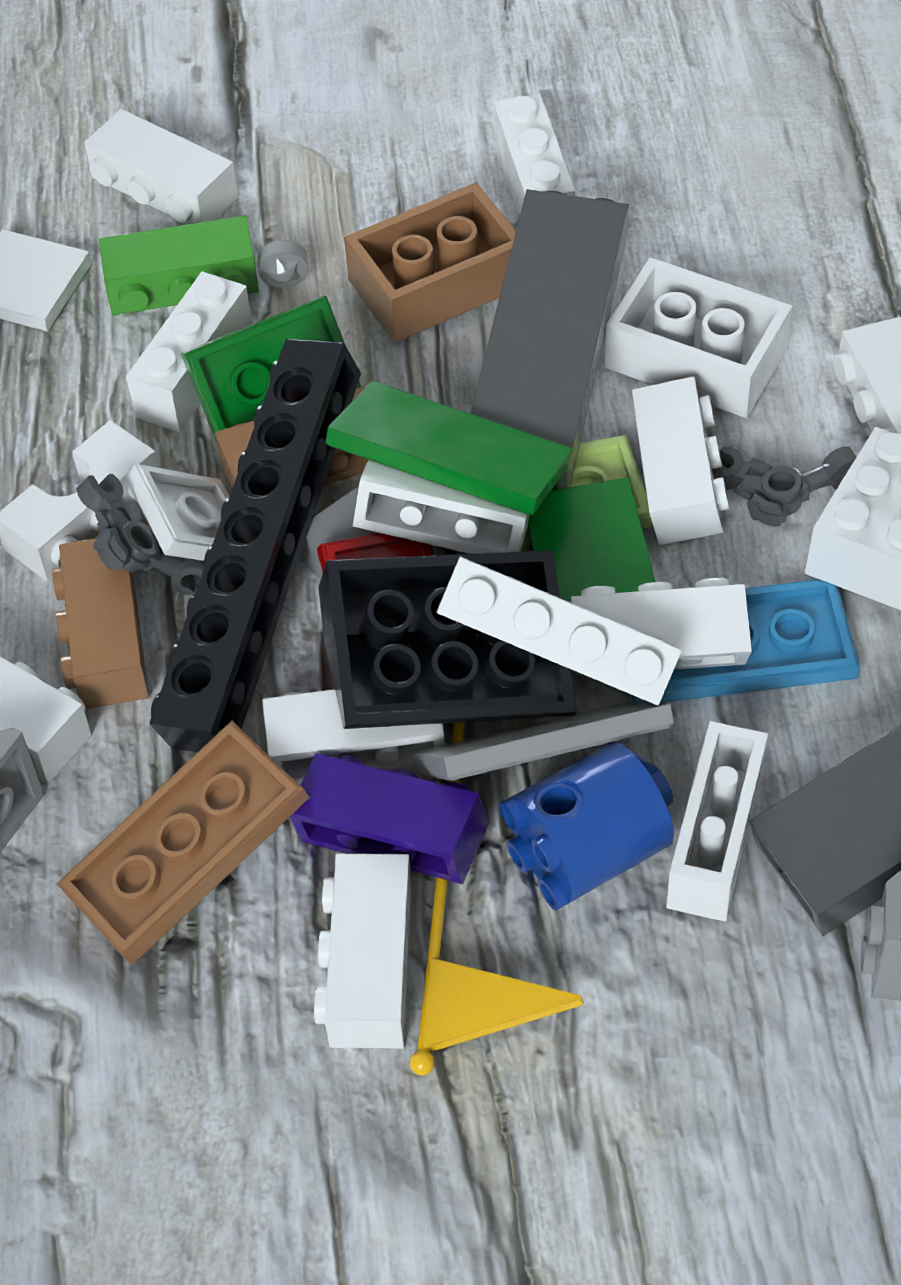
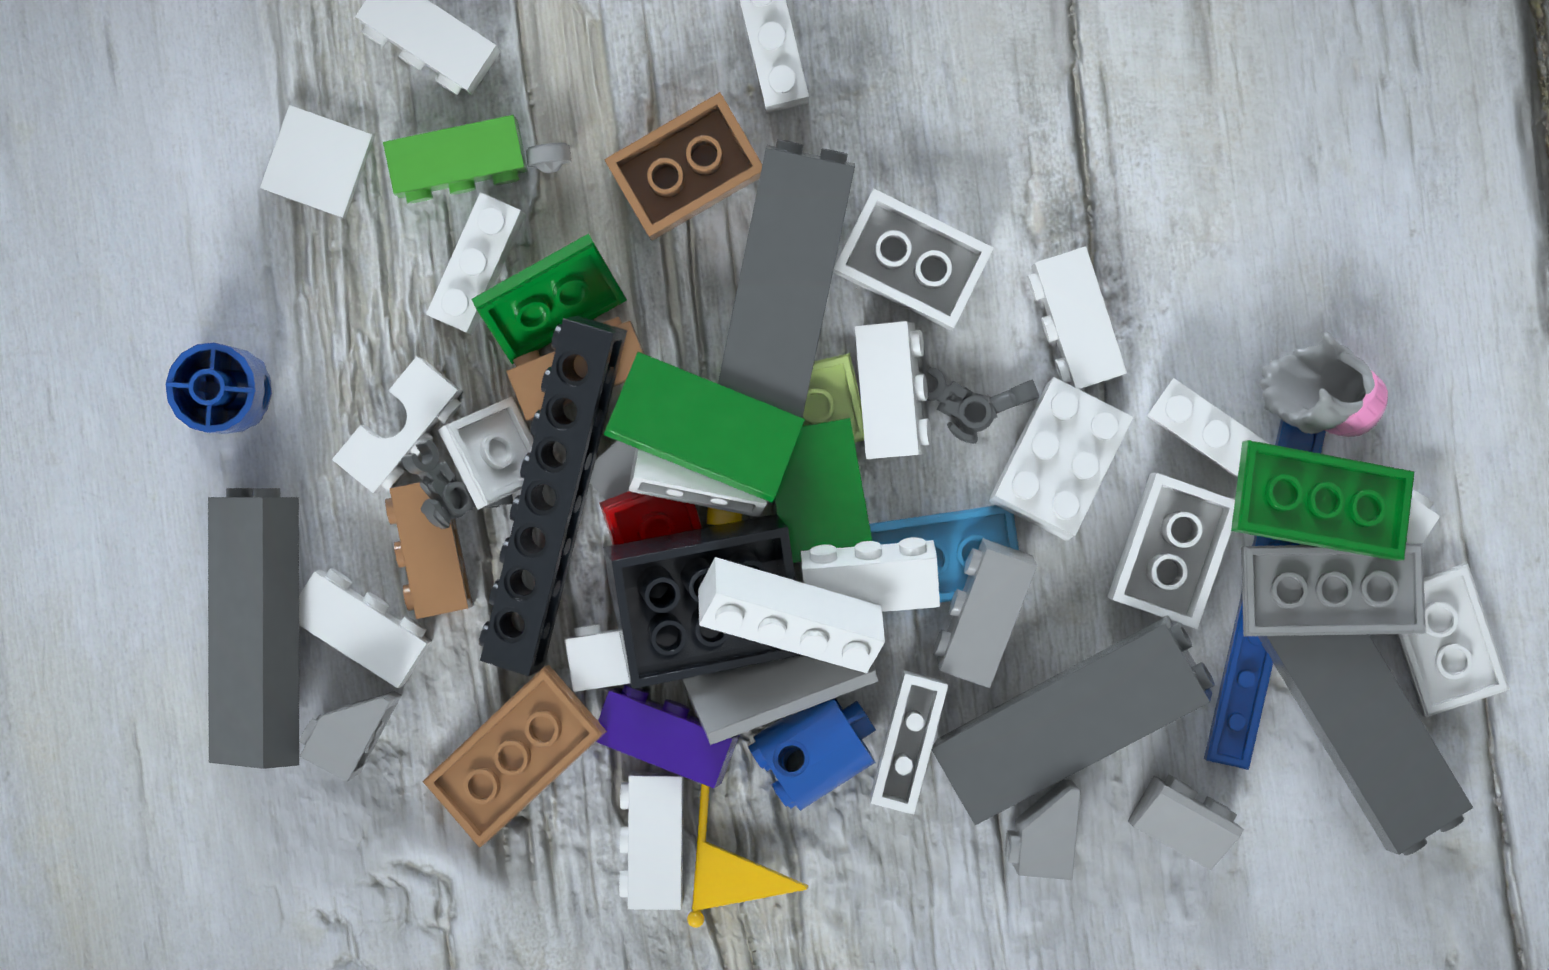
camera: 10 degrees left, 35 degrees up
(810, 672) = (984, 612): none -> light grey brick

